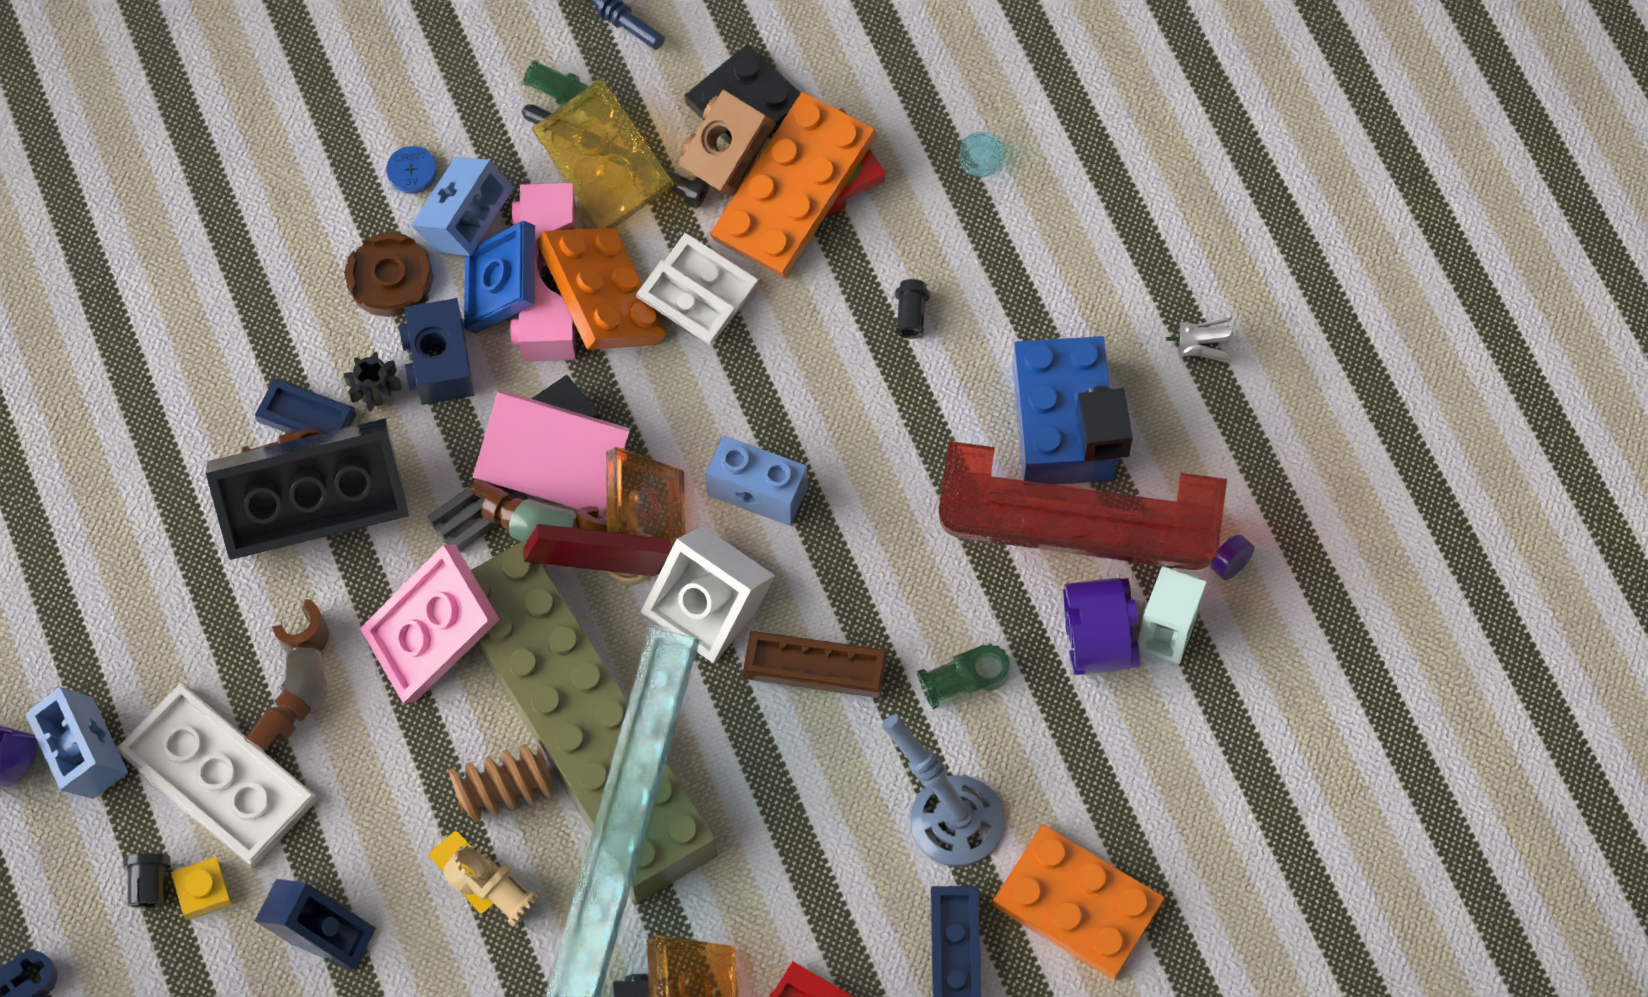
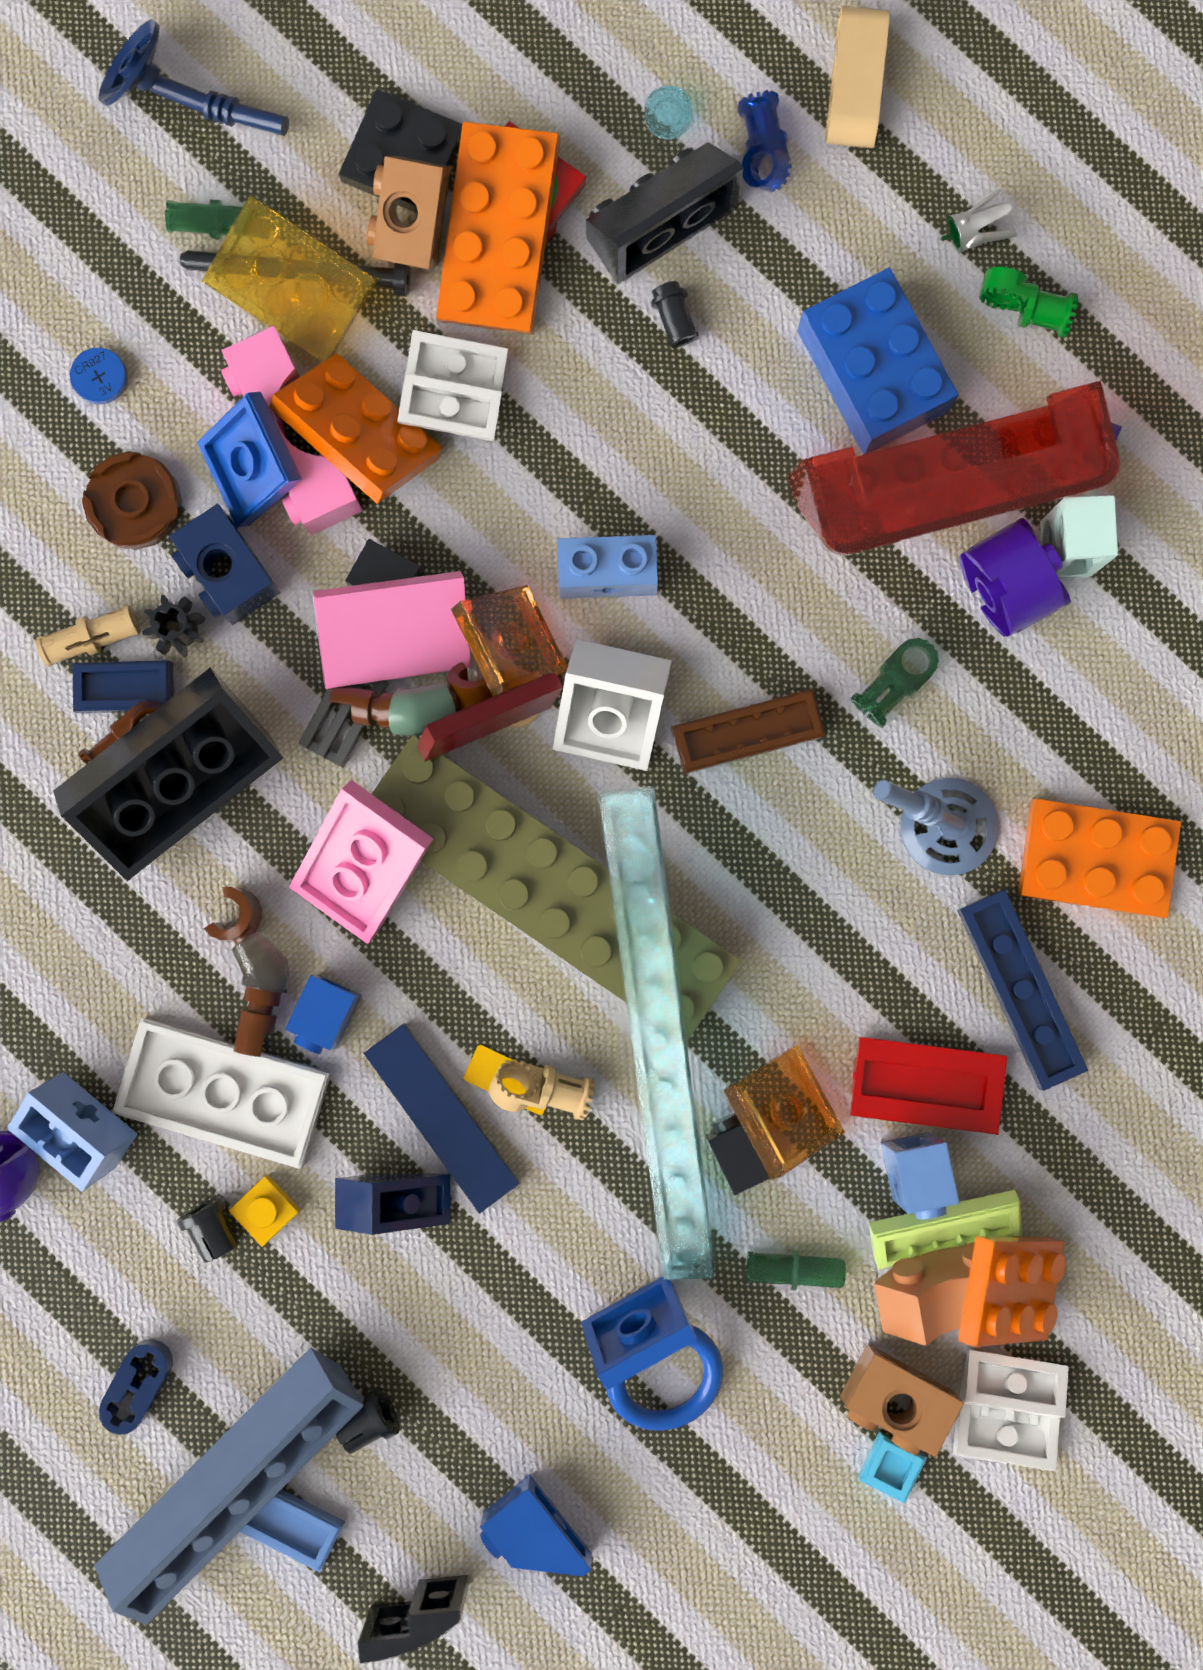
camera: 20 degrees left, 20 degrees up
(270, 361) = (87, 635): none -> tan pin
(335, 741) = (322, 1014): none -> blue brick
(393, 876) = (442, 1118): none -> dark blue tile
(462, 206) = (173, 397): medium blue brick -> none
(502, 782) = (505, 986): medium nougat piece -> none
(938, 225) = (664, 210): none -> black slope
(1049, 204) = (764, 139): none -> clear blue connector
(1104, 424) = (940, 366): black brick -> none
(1150, 187) = (857, 77): none -> tan beam
(1210, 405) = (1012, 291): none -> green connector

